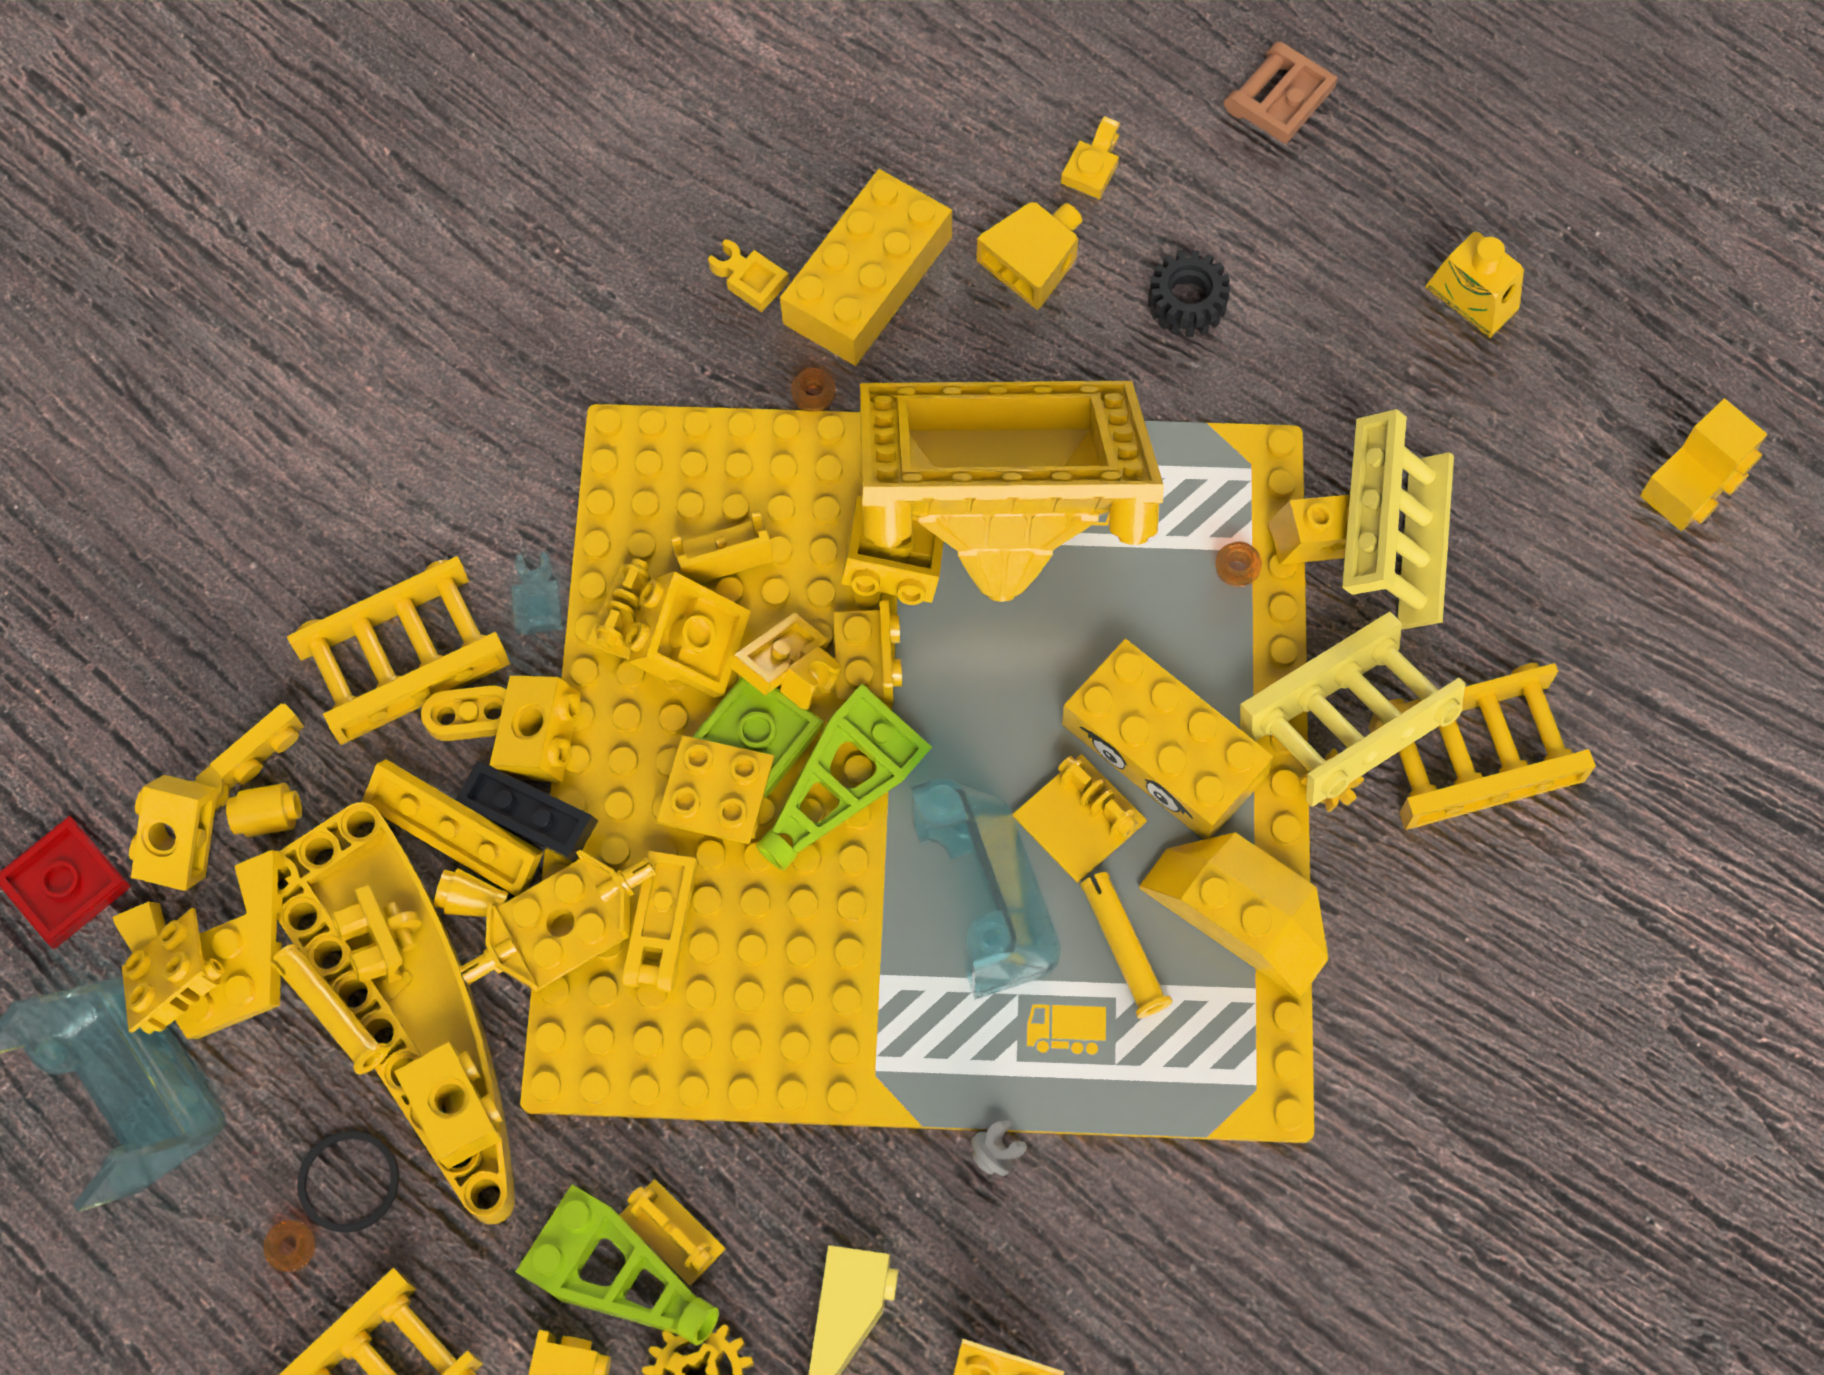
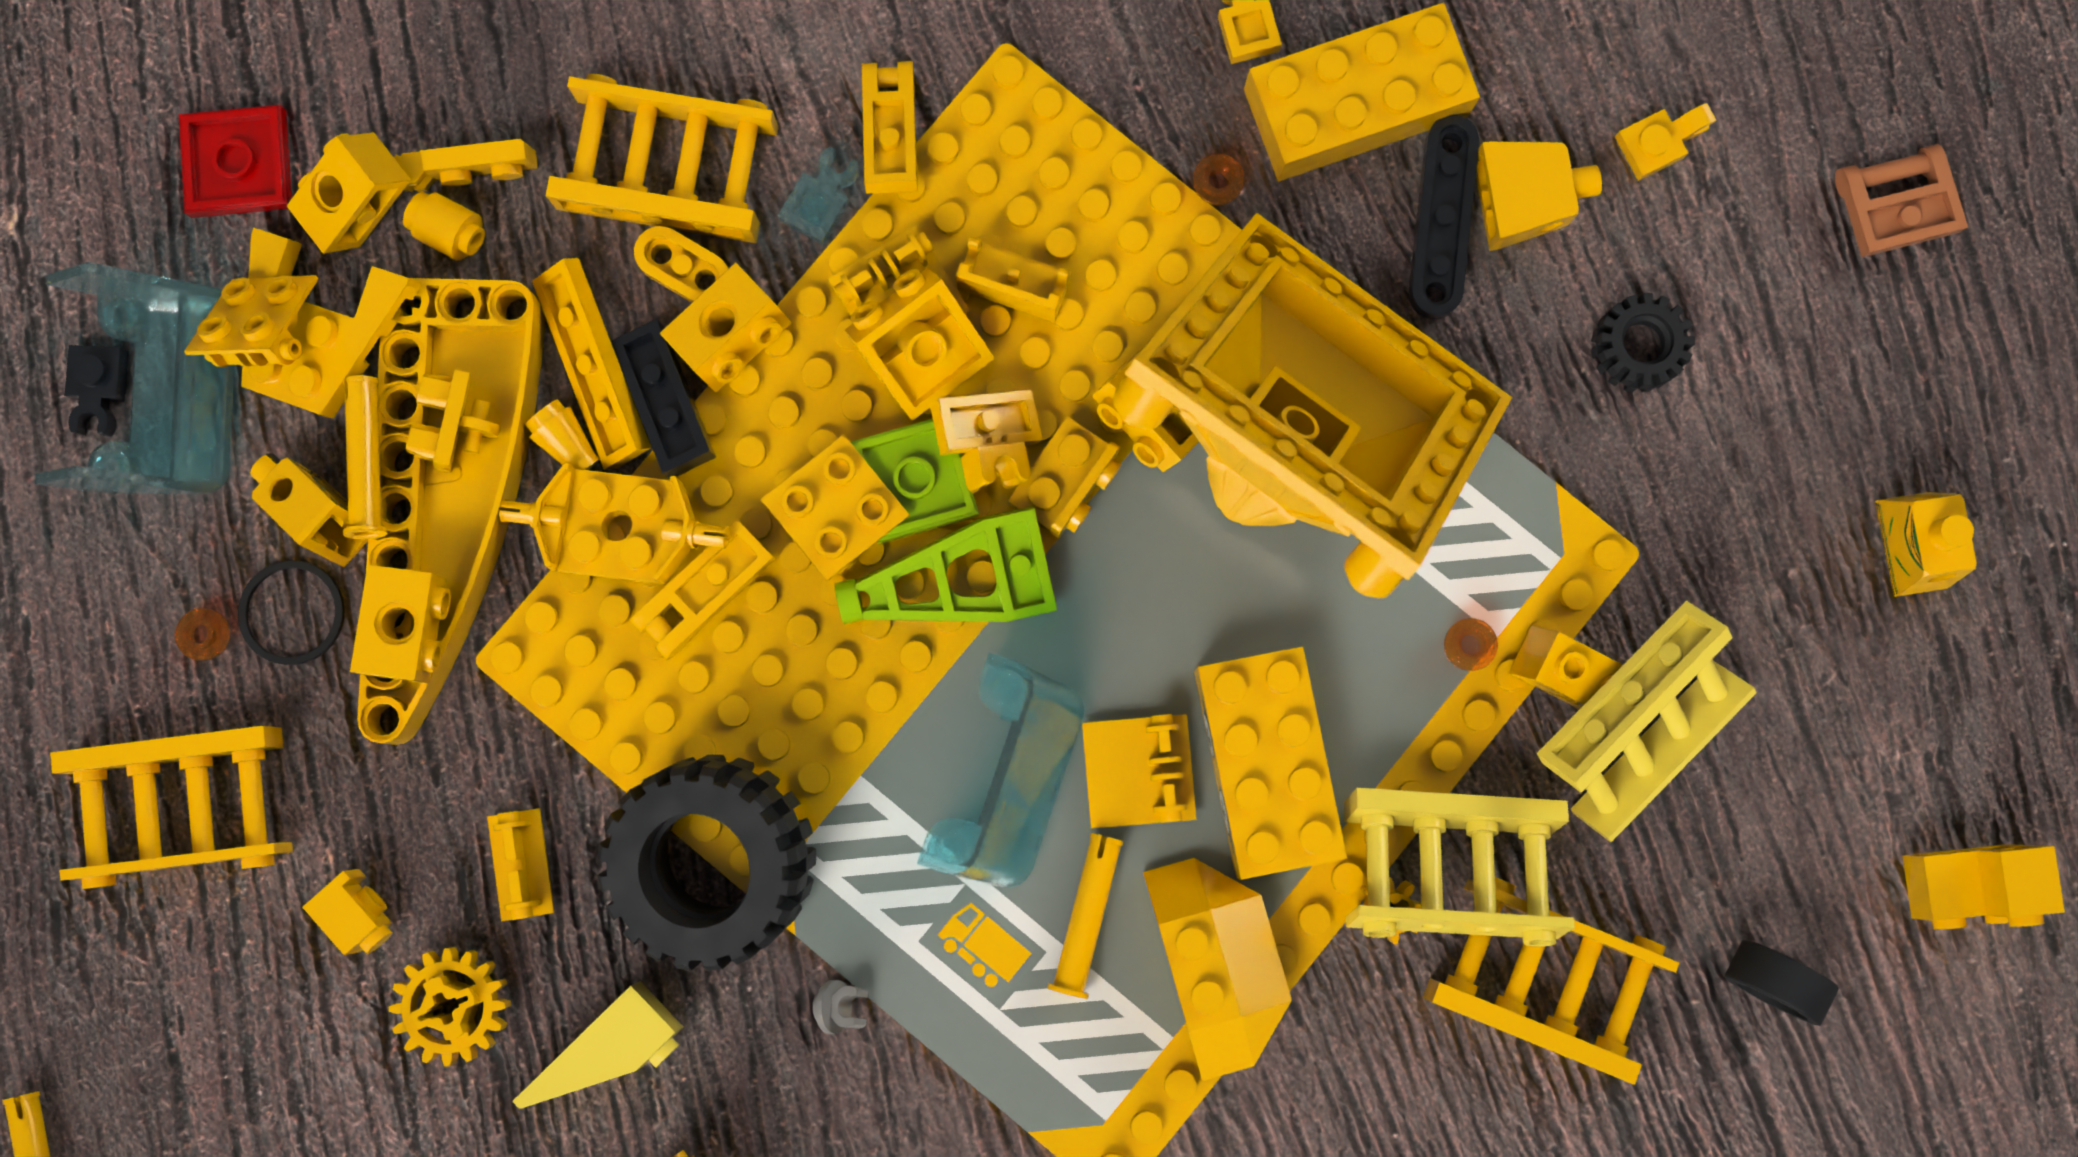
camera: 35 degrees right, 15 degrees up
(61, 1120) = (95, 378): none -> black plate
(309, 1082) = (305, 507): none -> yellow torso
(552, 513) = (889, 128): none -> yellow plate
(568, 1243) = (422, 810): lime plate -> none
(748, 1122) = (654, 901): none -> black tyre
(989, 307) = (1444, 217): none -> black plate
(1632, 625) = (1782, 982): none -> black tyre

